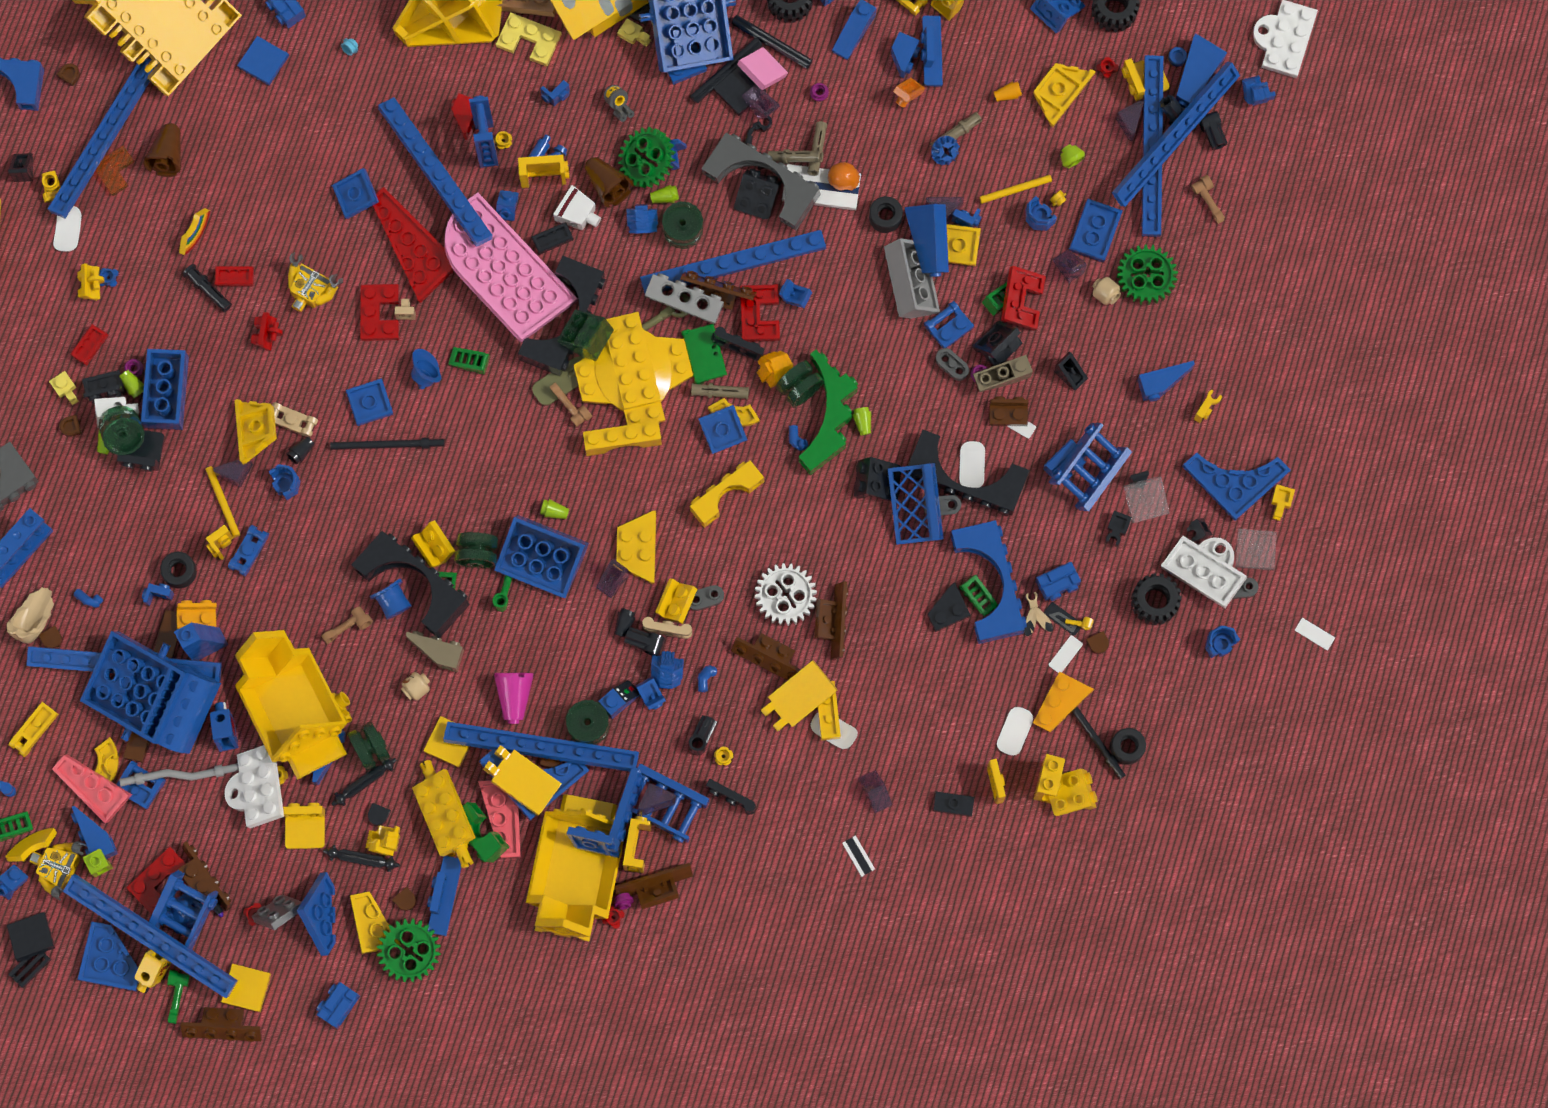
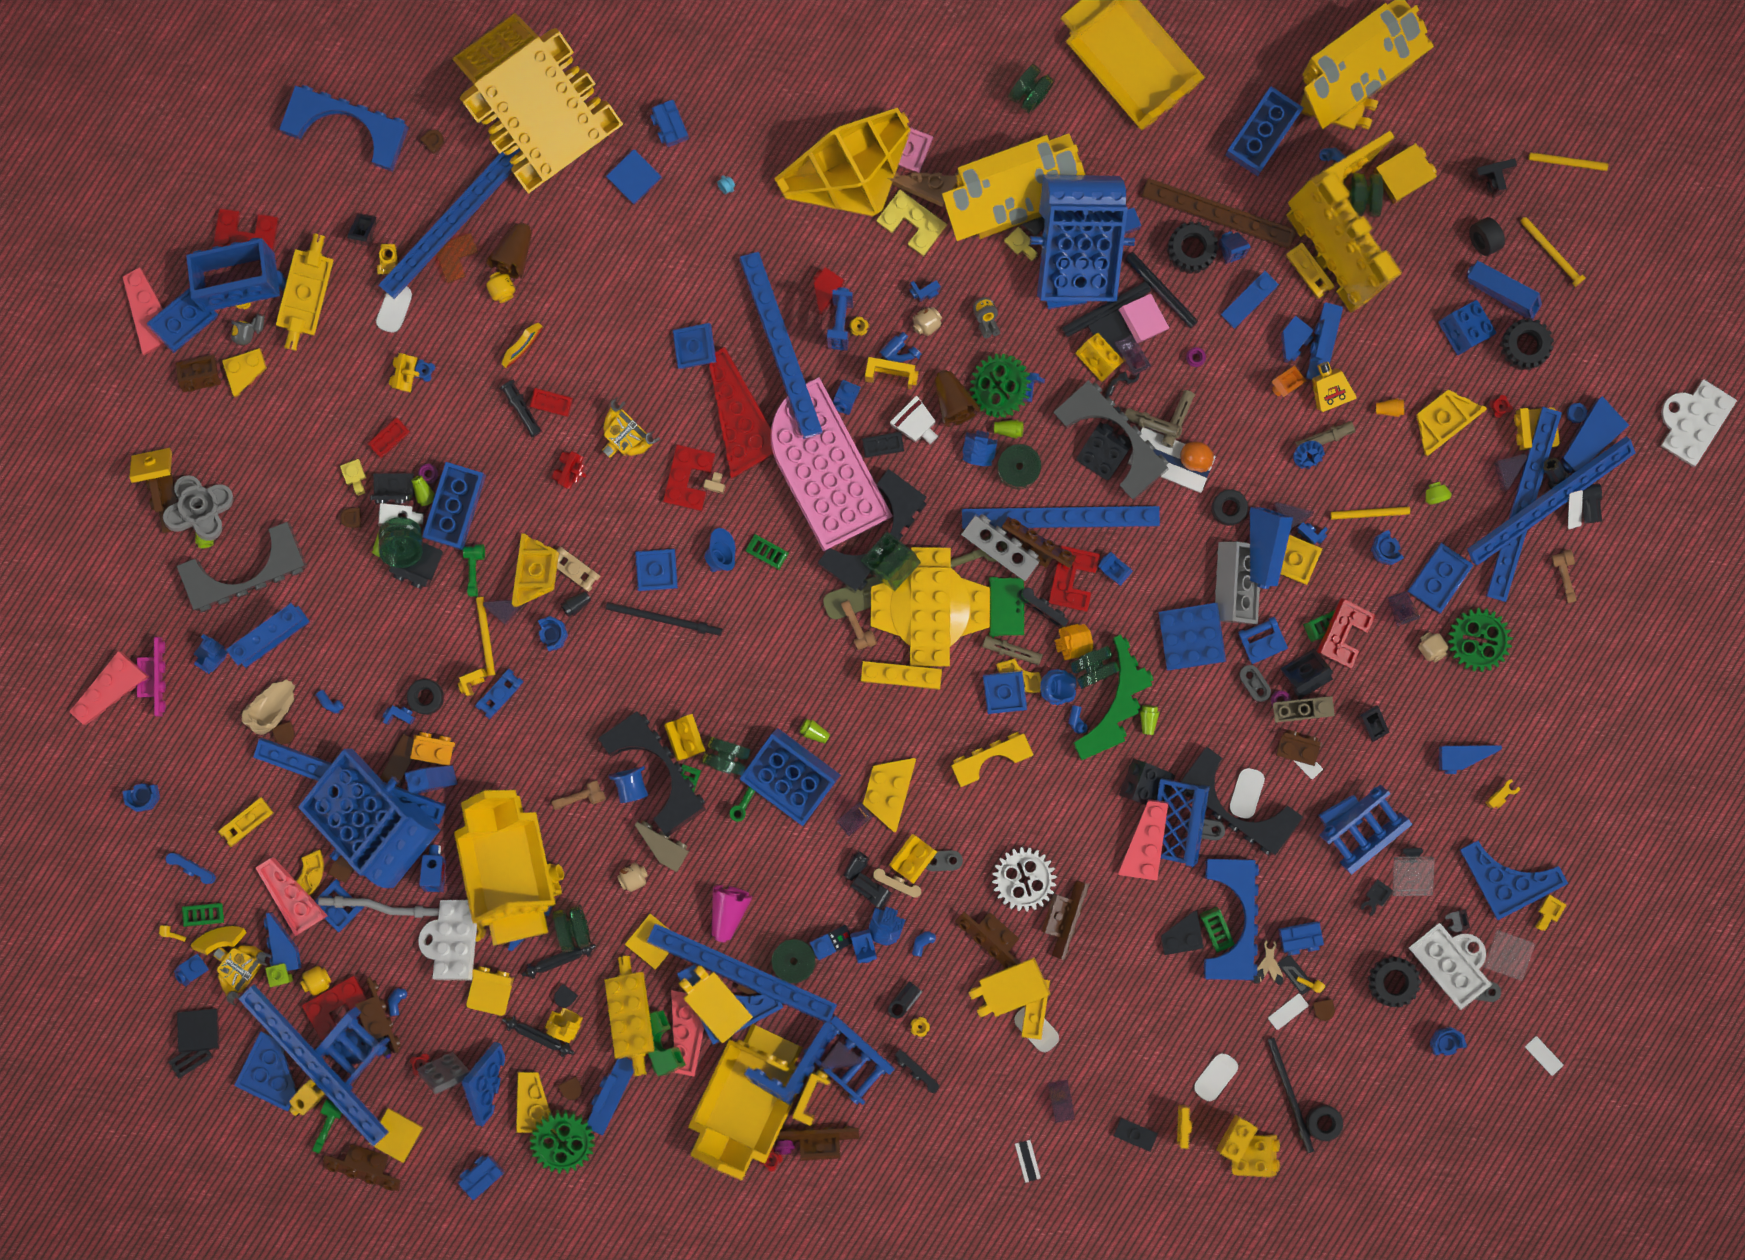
camera: 20 degrees right, 10 degrees up
(134, 859) = (315, 980): none -> yellow head
(162, 185) = (500, 287): none -> yellow head
(193, 429) = (473, 553): none -> green brick
(214, 859) = (394, 999): none -> blue arm
(564, 119) = (926, 321): none -> tan head
(730, 112) = (1099, 357): none -> yellow bracket
(771, 412) = (1058, 687): none -> blue hair
(882, 336) = (1192, 636): none -> blue plate
(891, 534) = (1146, 846): none -> coral wing
(949, 86) = (1331, 388): none -> yellow torso
(1058, 198) = (1411, 535): yellow plate -> none
(1060, 701) = (1270, 1060): light orange wing -> none
(1200, 138) = (1575, 509): none -> white sticker
(1256, 91) = (1647, 472): blue hair -> none

